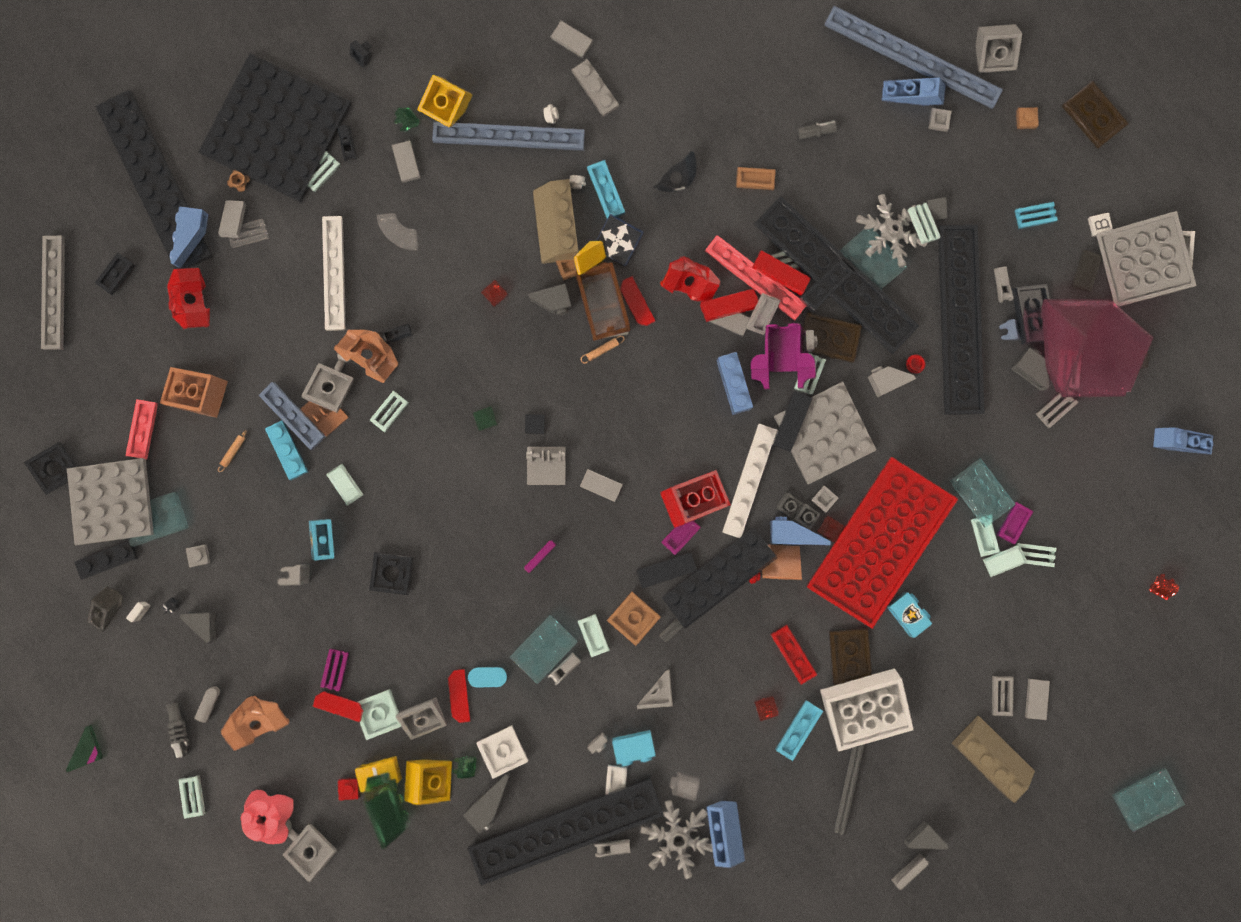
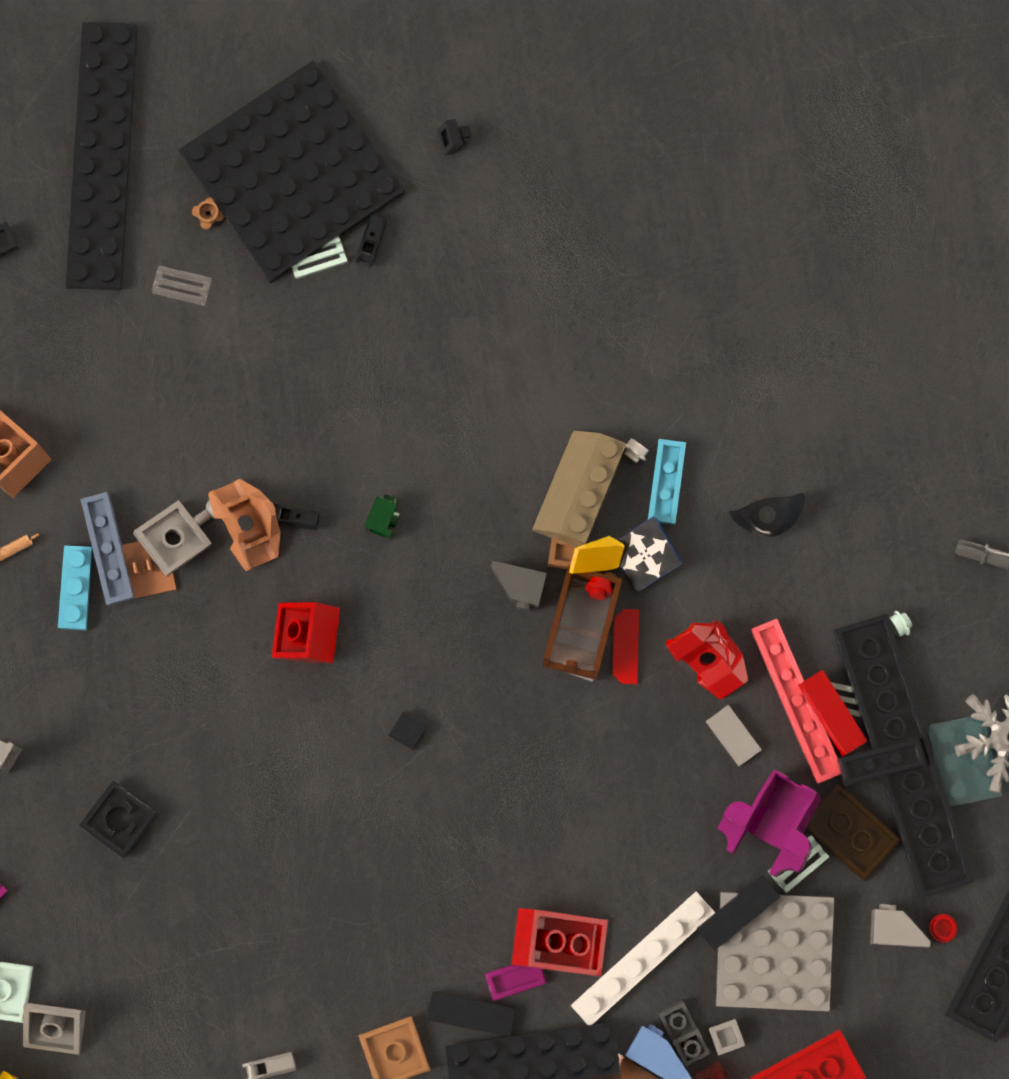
camera: 30 degrees right, 5 degrees down
(187, 282) = (63, 306): red piece -> none
(189, 231) = (113, 245): medium blue slope -> none
(232, 219) = (173, 258): light grey tile -> none
(321, 539) = (56, 726): medium azure brick -> none
(334, 273) = (261, 397): white plate -> none
(344, 484) = (123, 672): light aqua tile -> none
(397, 233) = (370, 389): clear tile -> none
(399, 399) = (238, 620): light aqua tile -> none
(406, 161) = (432, 304): light grey tile -> none
(407, 118) = (464, 251): clear green tile -> none
(440, 399) = (306, 632): none -> red slope
(444, 101) = (523, 256): yellow slope -> none
(447, 304) = (383, 516): none -> dark green brick
(459, 696) = (115, 1026): red piece -> none
(485, 418) = (348, 688): clear green plate -> none
(487, 677) = (165, 1021): medium azure tile -> none
(494, 293) = (450, 534): clear red tile -> none
(509, 136) = (581, 344): sand blue plate -> none
(540, 556) = (319, 904): magenta tile -> none
(543, 649) = (257, 1026): clear light blue plate -> none
(546, 465) = (392, 792): light grey hinge -> none
(551, 114) = (650, 346): white plate -> none
(571, 39) = (731, 264): light grey tile -> none
(593, 635) = (330, 1045): light aqua tile -> none
(595, 88) = (726, 343): light grey plate -> none
(601, 275) = (599, 588): none -> red plate
(601, 485) = (448, 857): light grey tile -> none
(602, 349) = (548, 683): light nougat piece -> none
(729, 305) = (743, 717): red tile -> none
(734, 383) = (693, 822): medium blue brick -> none
(755, 178) = (869, 572): medium nougat tile -> none
(763, 313) = (779, 752): light grey tile -> none
(792, 197) = (900, 624): none -> light aqua plate
(809, 340) = (819, 822): light grey plate -> none

